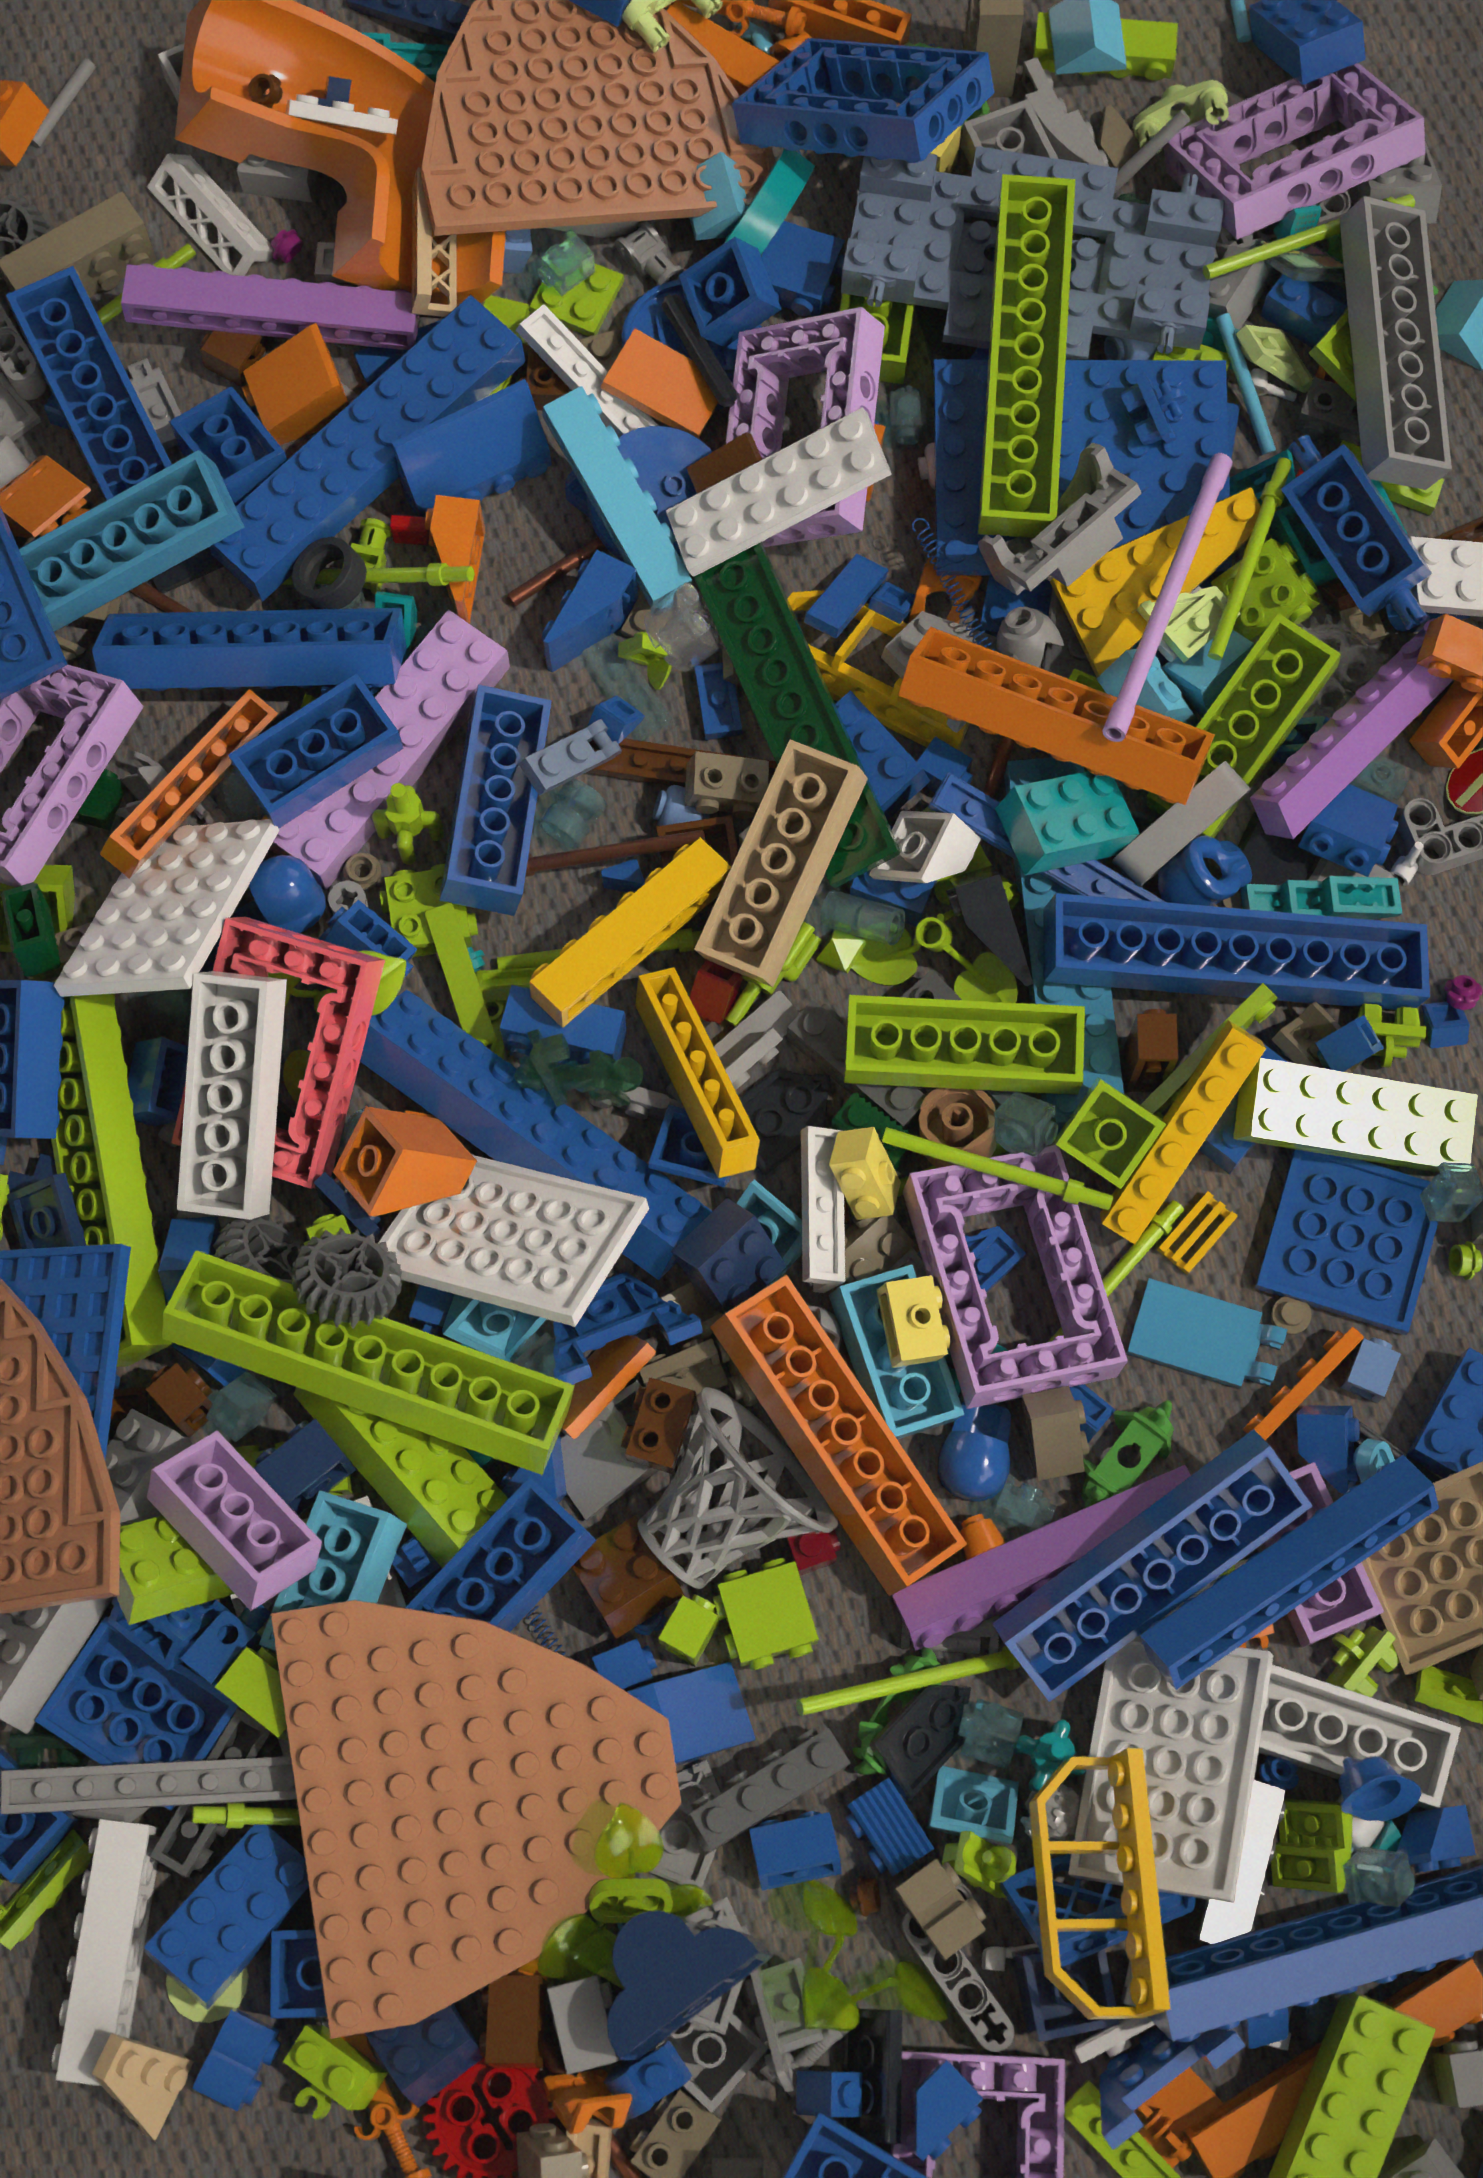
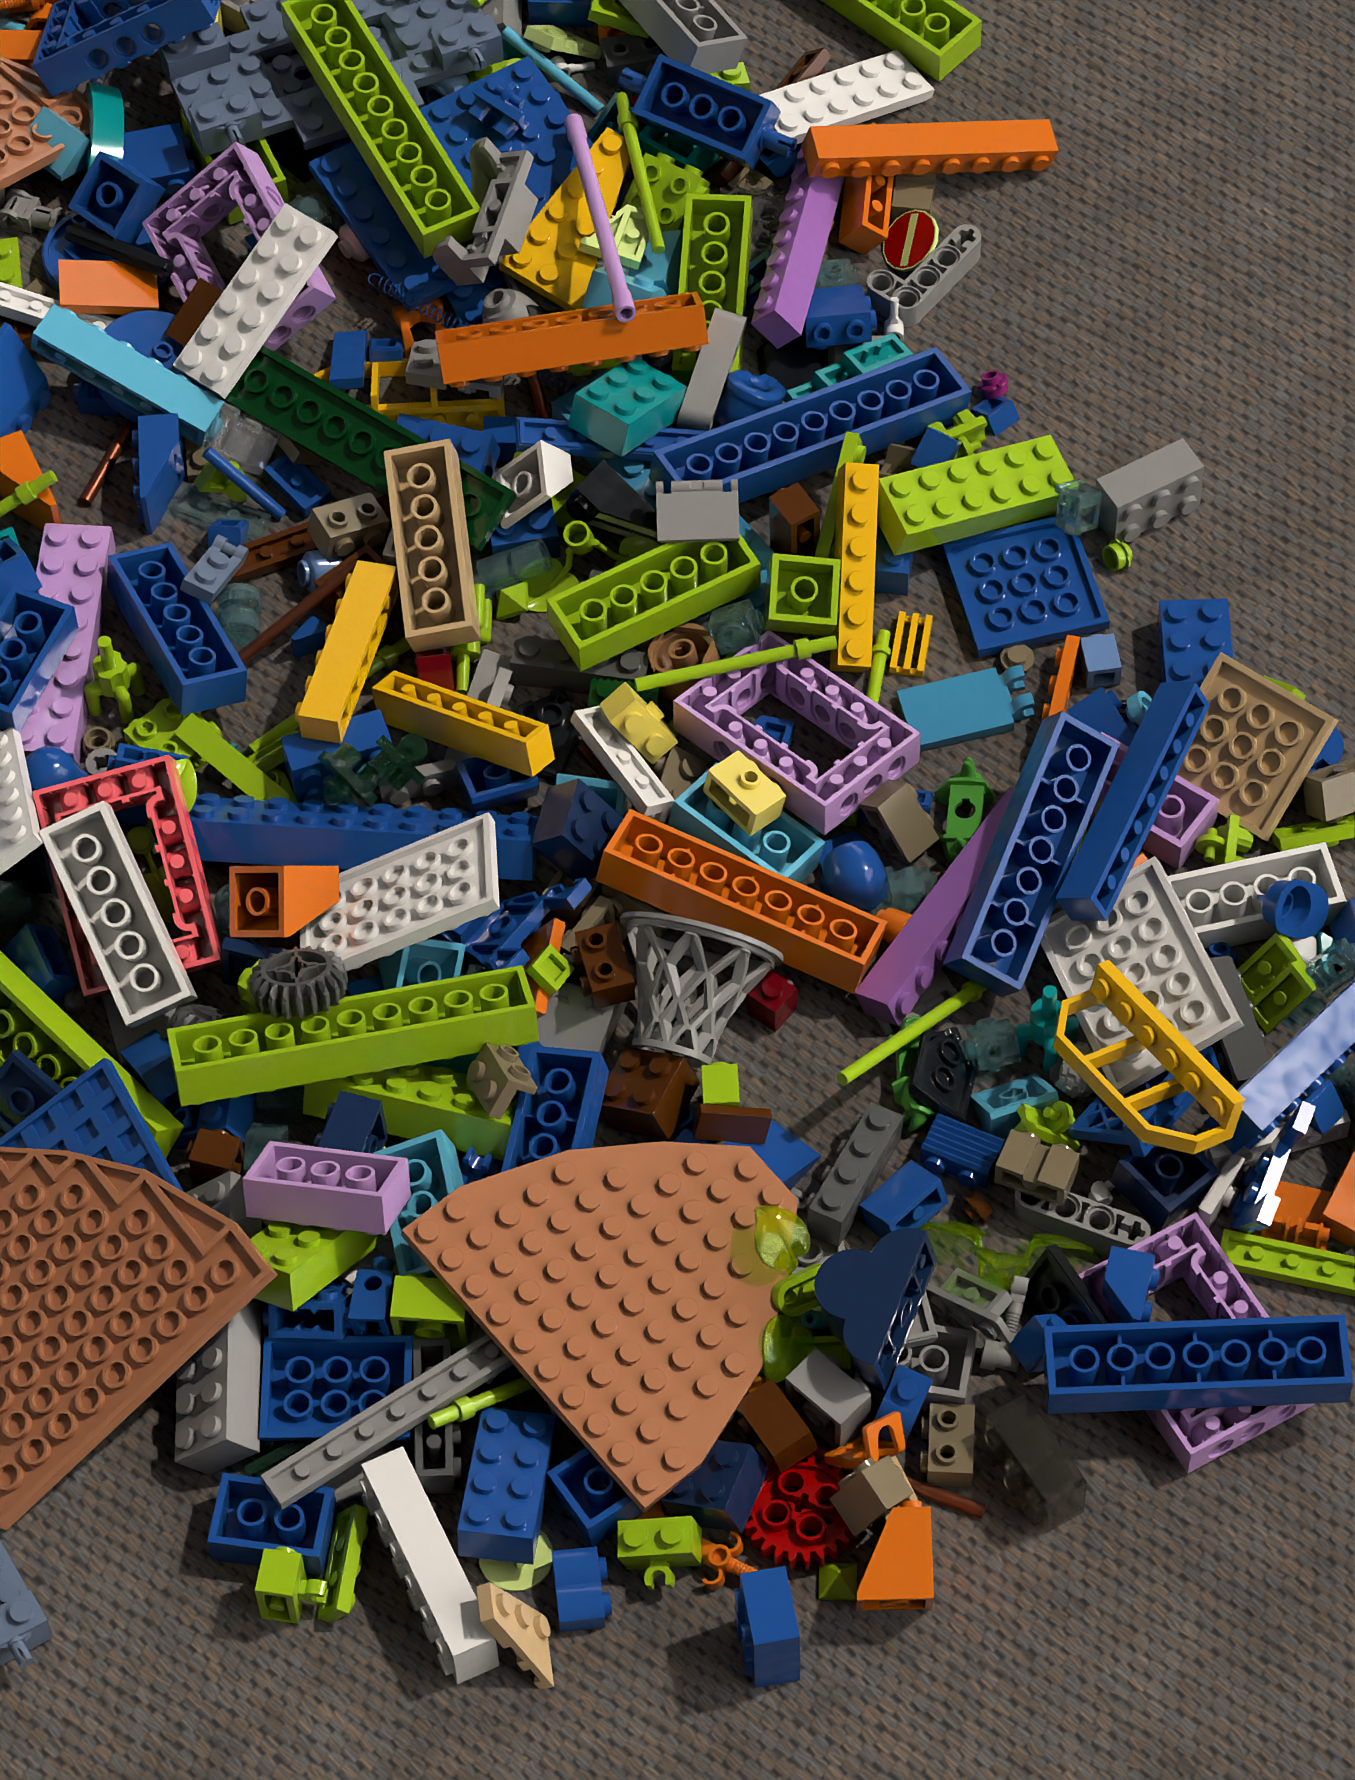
camera: 30 degrees left, 15 degrees down
(477, 1496) = (497, 1077): none -> dark tan bracket
(605, 1398) = (549, 969): none -> lime tile
(660, 675) = (244, 483): none -> blue bar
(679, 1669) = (732, 1123): none -> reddish brown tile
(766, 1614) = (773, 1060): lime brick -> none
(1055, 988) = (697, 512): none -> light grey piece

